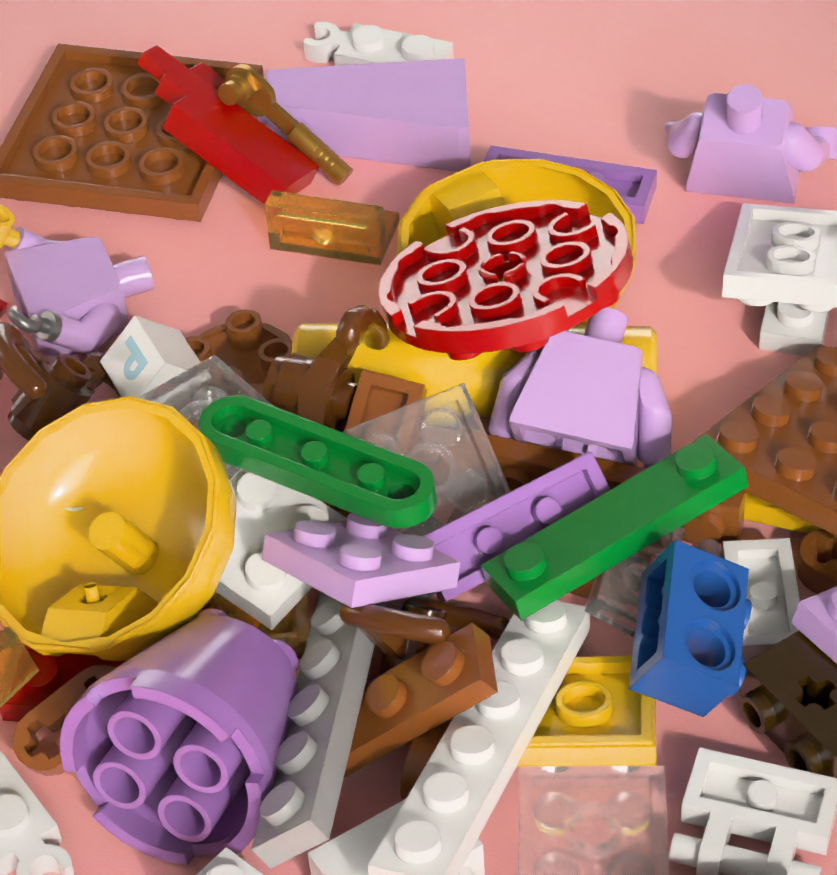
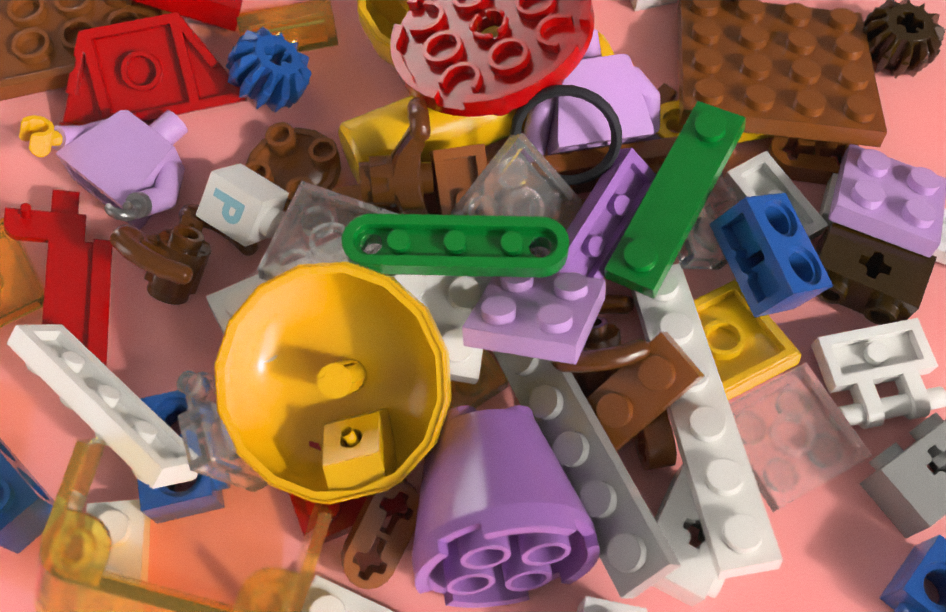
camera: 35 degrees left, 20 degrees up
(150, 209) = (146, 70): none -> red wing
(273, 254) = (268, 69): none -> blue gear
(566, 392) = (598, 102): none -> black tyre

